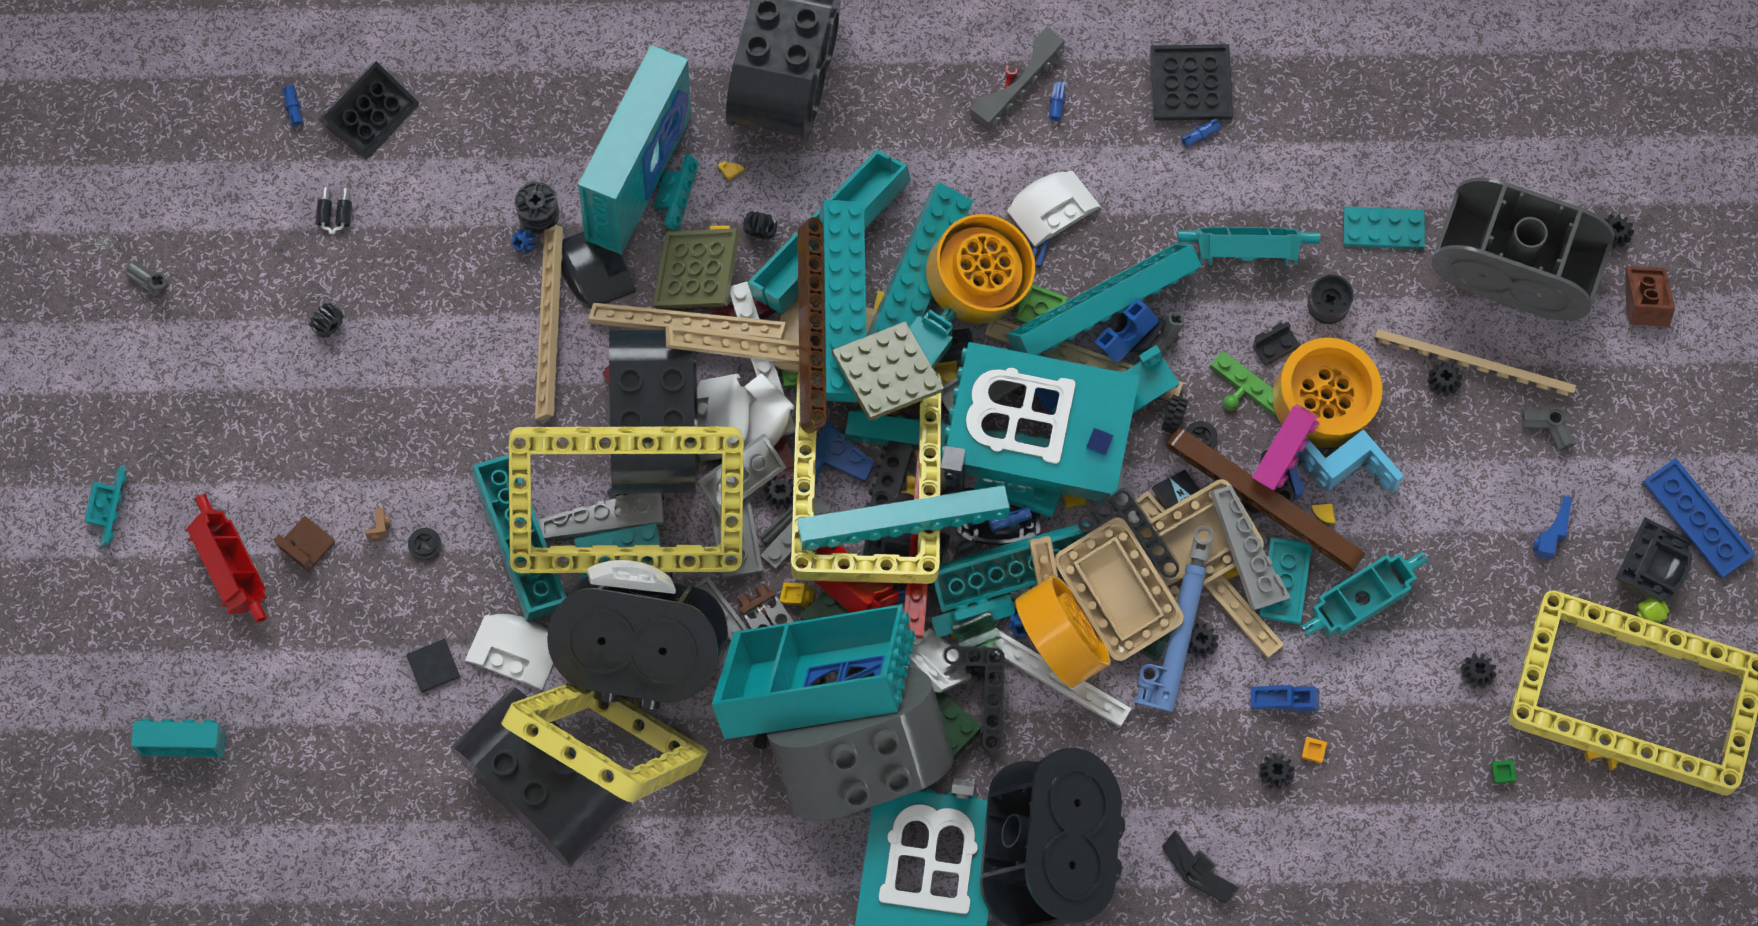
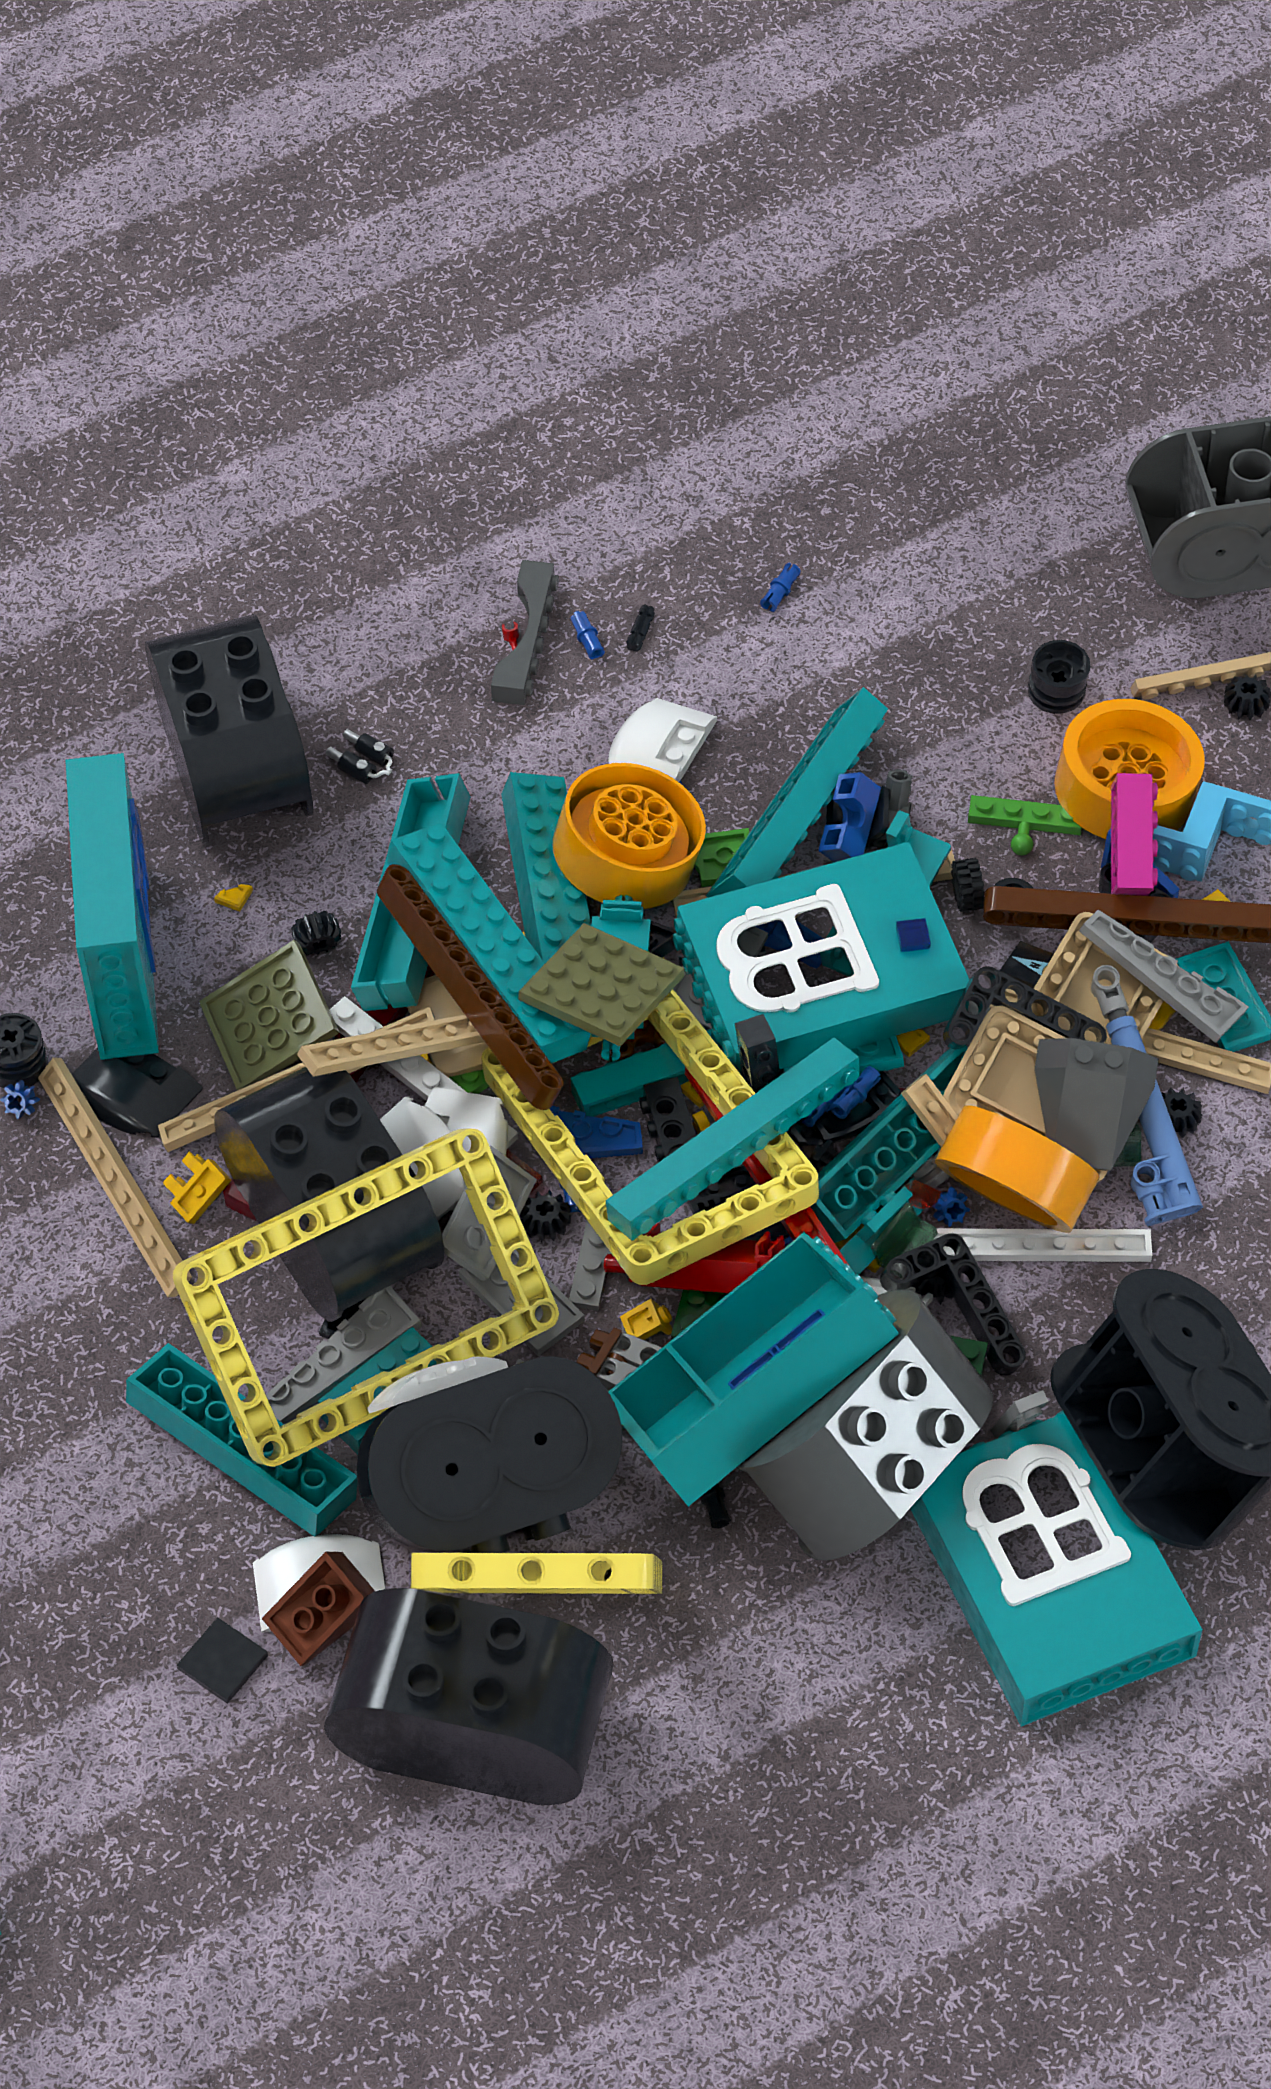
camera: 30 degrees left, 15 degrees down
(382, 523) = (42, 1521): medium nougat bracket -> none
(424, 534) = (110, 1507): black gear -> none
(501, 668) = (318, 1607): none -> copper slope
(588, 361) = (200, 1191): none -> yellow plate
(675, 192) = (180, 952): teal bracket -> none
(778, 526) = (570, 1249): dark grey axle -> none
(857, 119) = (370, 748): none -> black piece
(1003, 609) = (923, 1195): none -> clear red plate
(1095, 113) = (640, 628): none -> black axle
(1142, 609) = (1092, 1095): none -> dark grey wedge
(1191, 82) = (731, 541): black plate -> none
(1248, 242) = (926, 663): teal brick -> none
(1275, 343) = (1026, 757): black bracket -> none
(1383, 227) = (1060, 582): teal plate -> none

